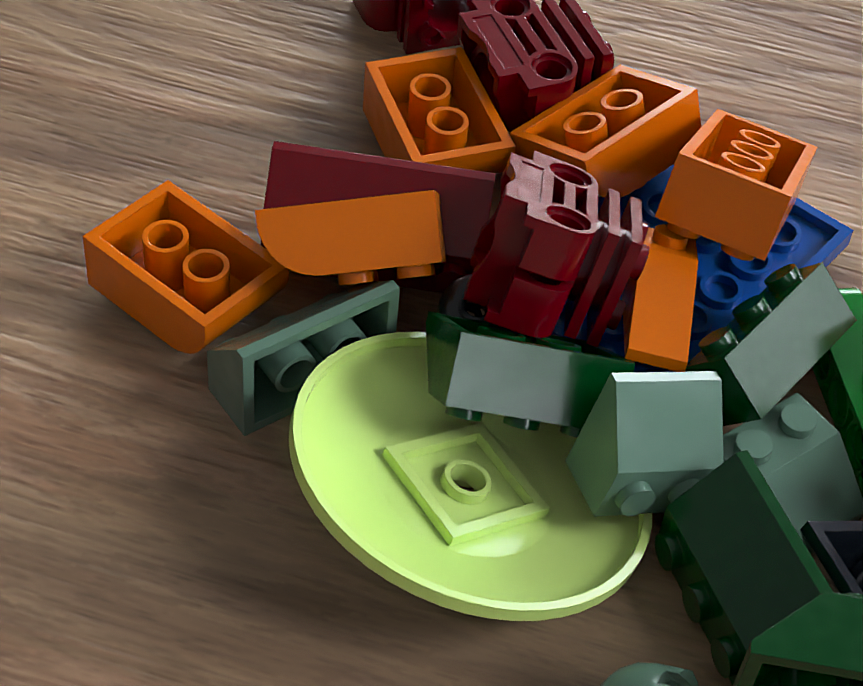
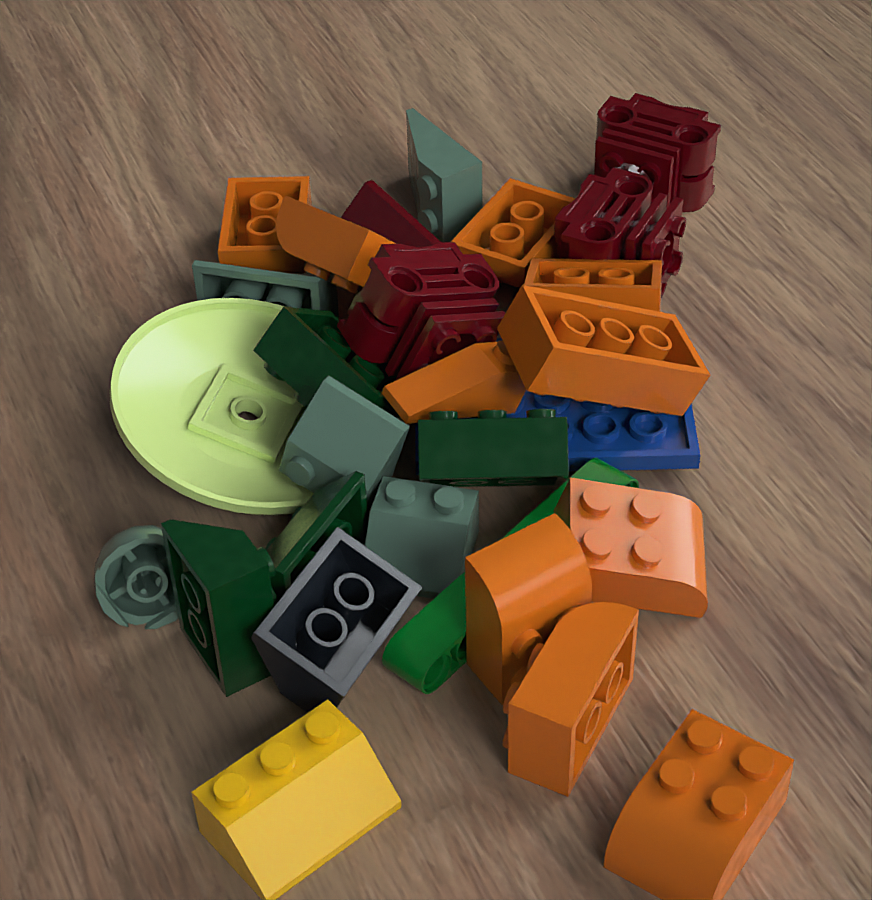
camera: 55 degrees right, 5 degrees down
(267, 96) = (442, 178): none -> sand green slope

